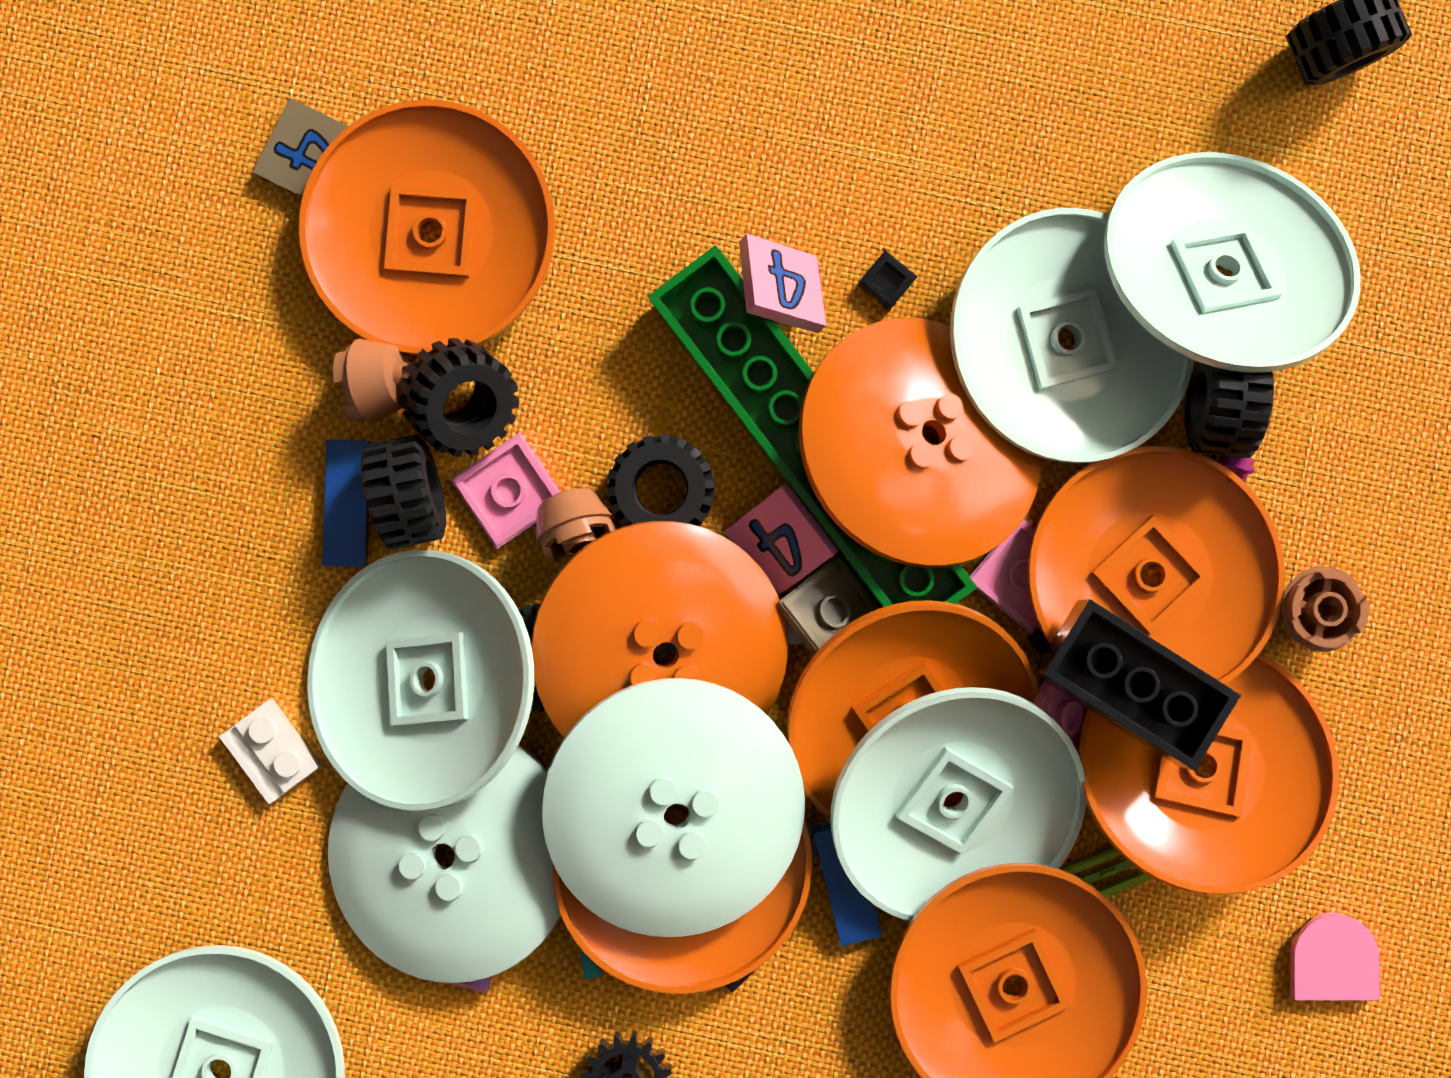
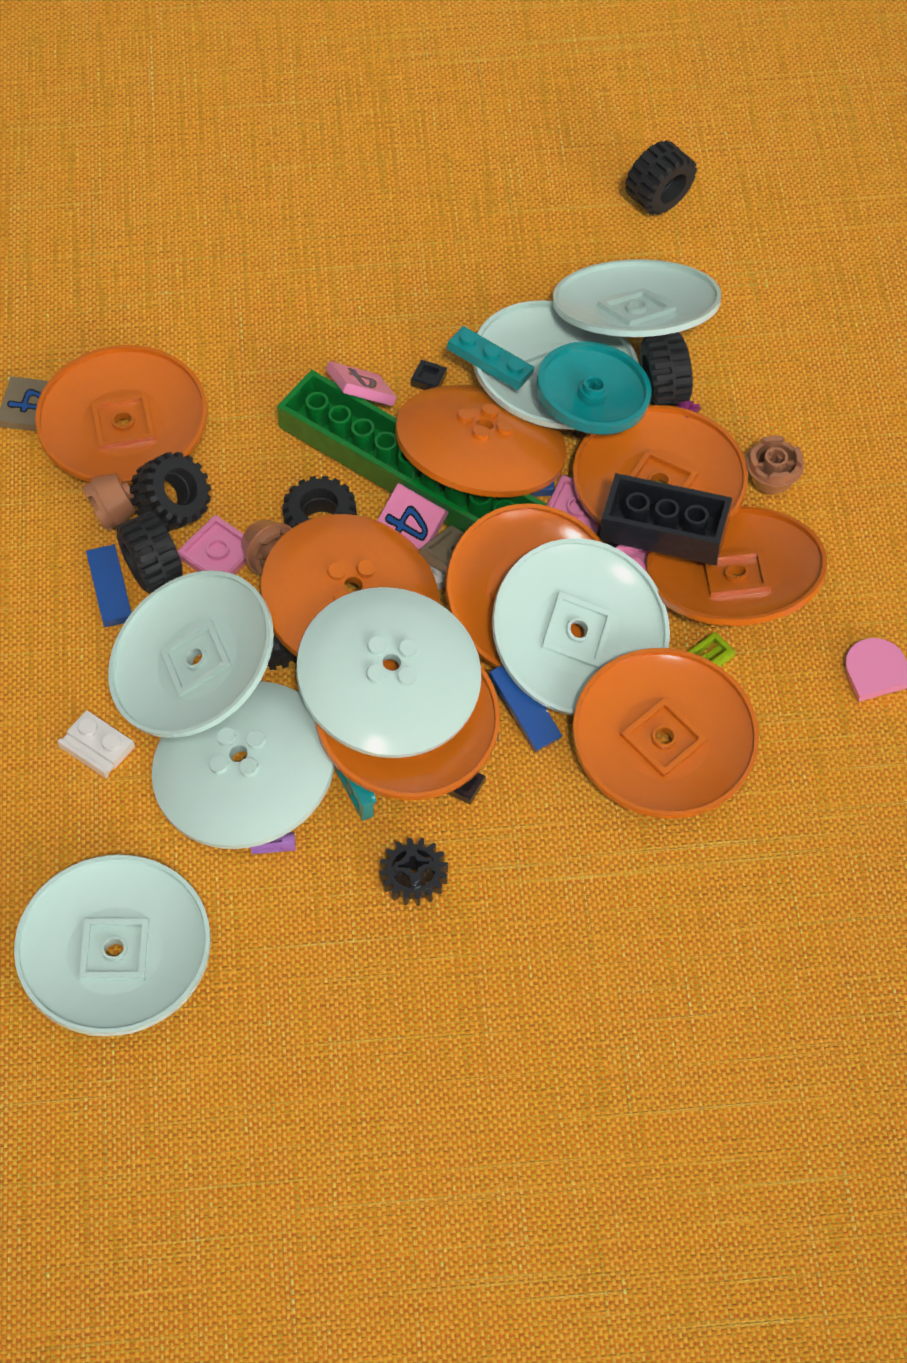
camera: 15 degrees left, 30 degrees down
(979, 314) = (490, 358): none -> teal plate
(1111, 419) = (593, 388): none -> teal dish

